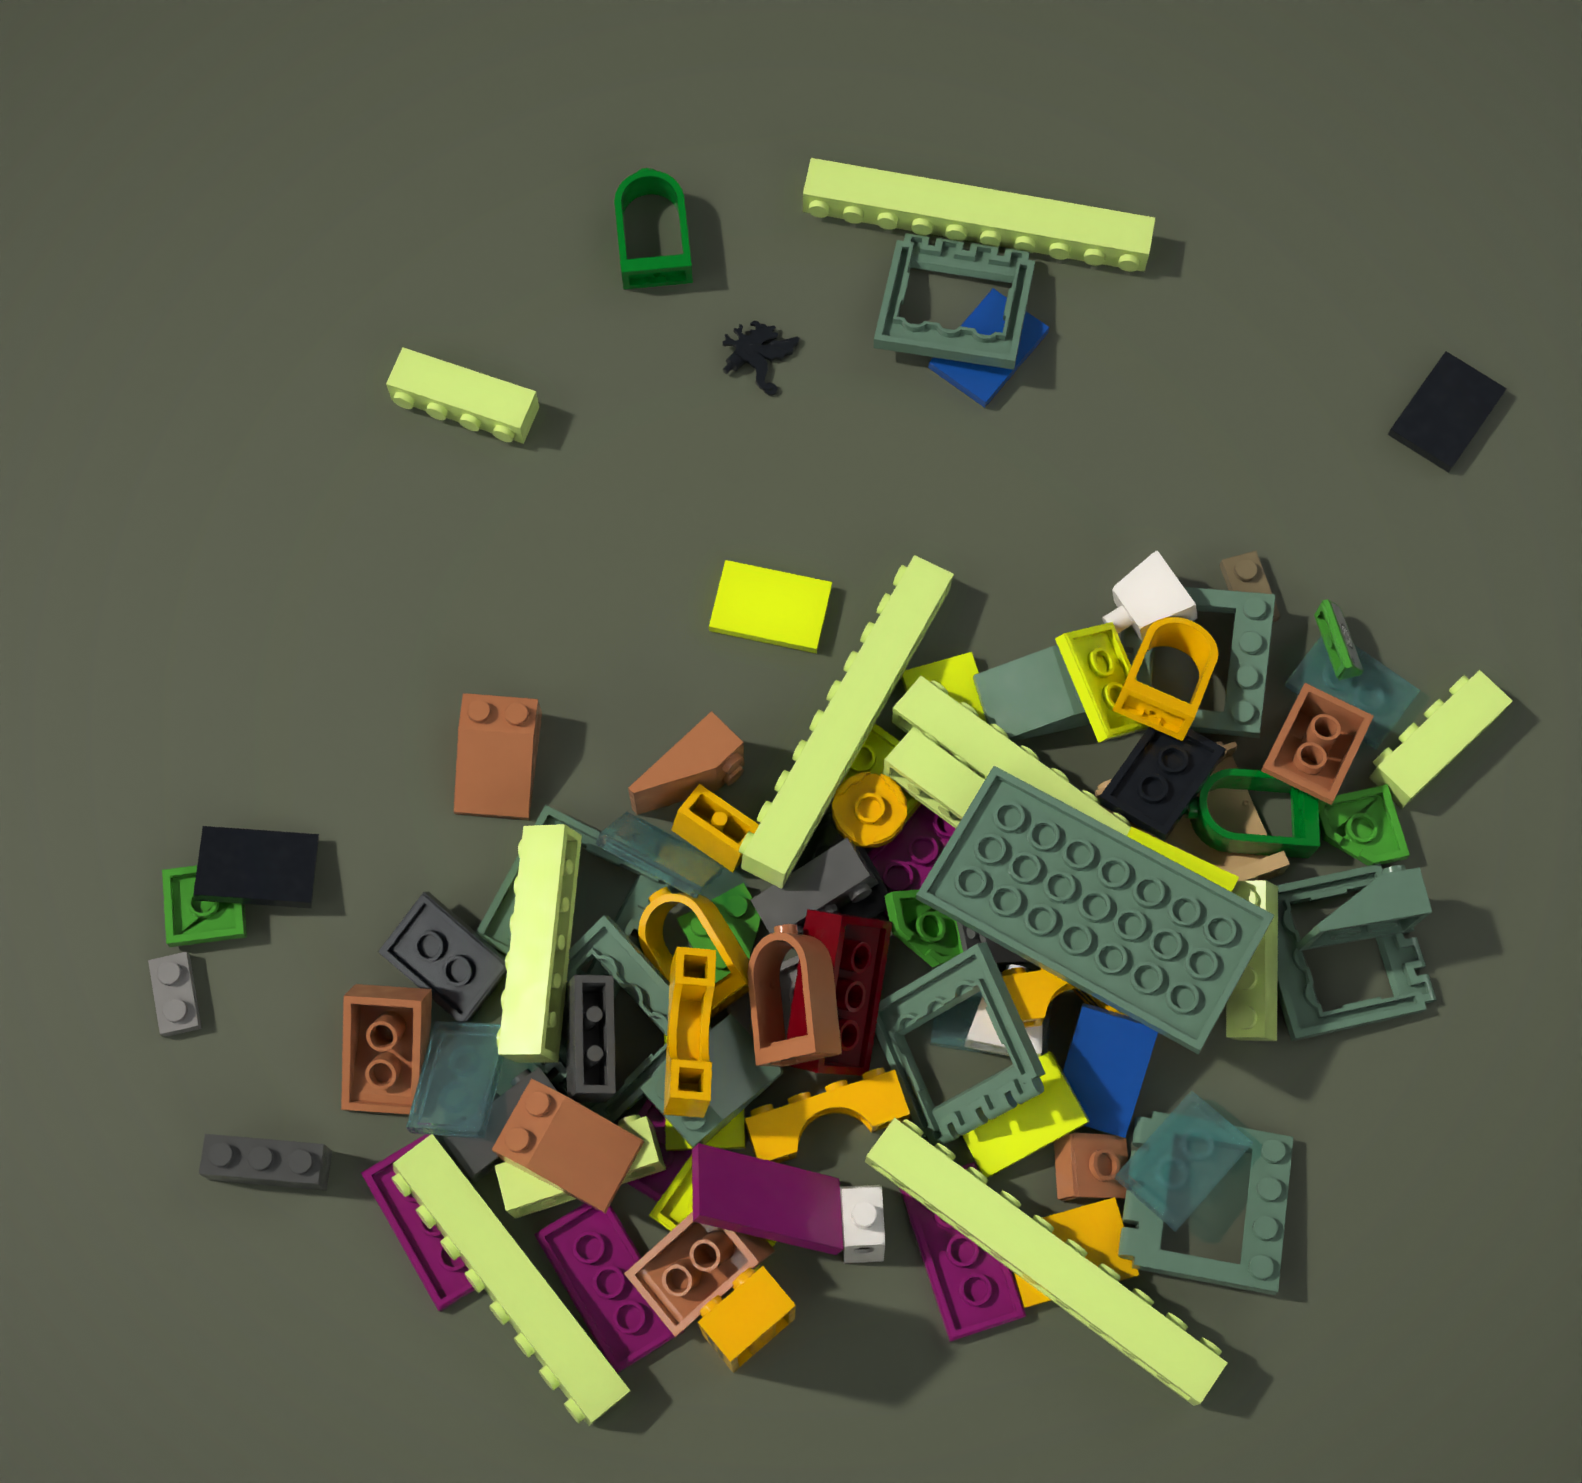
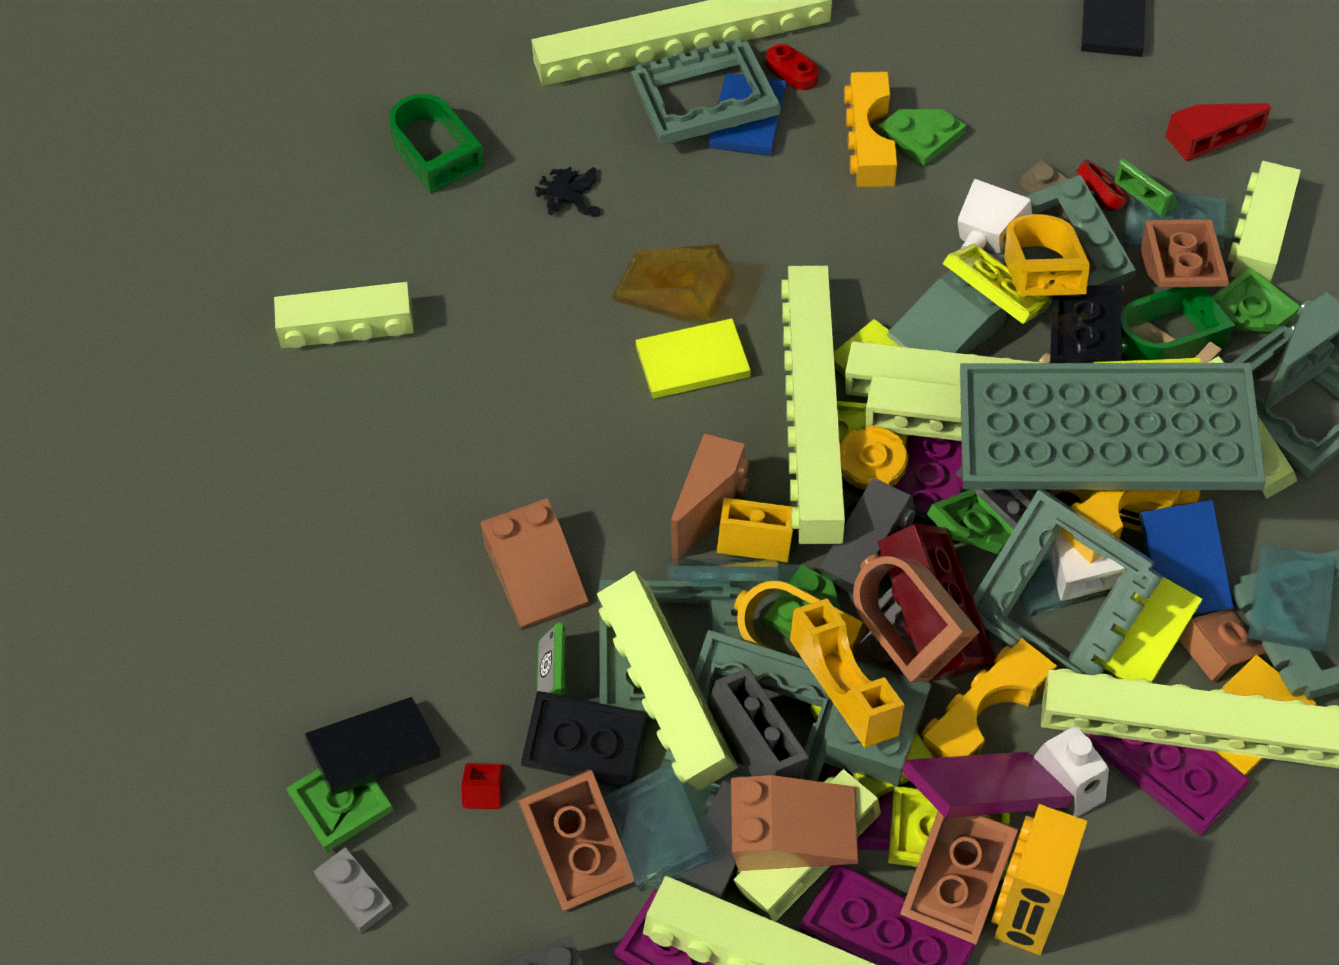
camera: 25 degrees left, 15 degrees down
(336, 952) = (482, 786): none -> red slope
(459, 869) = (552, 661): none -> slope
(799, 514) = (676, 281): none -> clear yellow slope
(1068, 308) = (789, 66): none -> red plate
(1118, 395) = (873, 155): none -> yellow arch
(1154, 456) = (922, 132): none -> bright green plate
(1298, 612) = (1096, 179): none -> red plate
(1456, 597) = (1214, 126): none -> red slope

